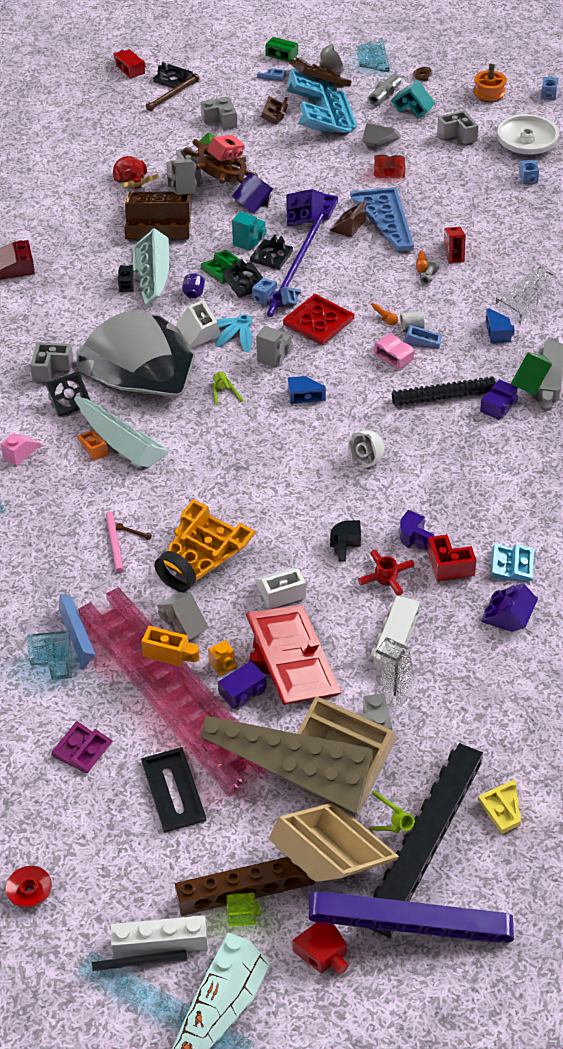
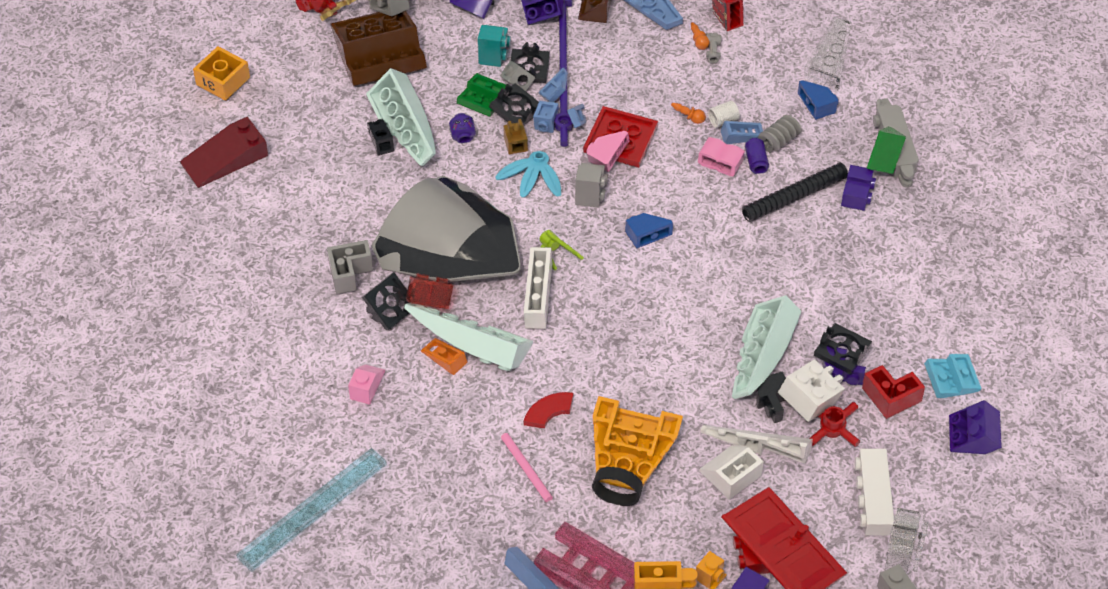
camera: 20 degrees left, 5 degrees up
(27, 208) = (221, 73): none -> light orange brick
(101, 393) = (429, 292): none -> clear red brick
(119, 526) = (523, 447): reddish brown hinge -> none
(155, 502) = (547, 408): none -> red tile
(184, 614) = (650, 532): light grey brick -> none
(190, 411) = (538, 288): none -> white brick
(198, 324) = (494, 177): white slope -> none
(231, 300) = (515, 137): none -> pearl gold brick
(253, 253) = (513, 71): none -> light grey bracket
(283, 271) = (555, 86): none -> medium blue tile
(300, 323) = (607, 149): none -> bright pink slope
(339, 580) = (789, 446): none -> white wedge
(360, 495) = (764, 343): none -> light aqua wedge
(366, 444) = (747, 280): white cylinder -> none
(376, 538) = (812, 389): none -> white hinge
(424, 357) = (756, 156): none -> dark purple head
(424, 524) = (845, 365): none -> black piece
(451, 344) = (780, 133): none -> light grey piece

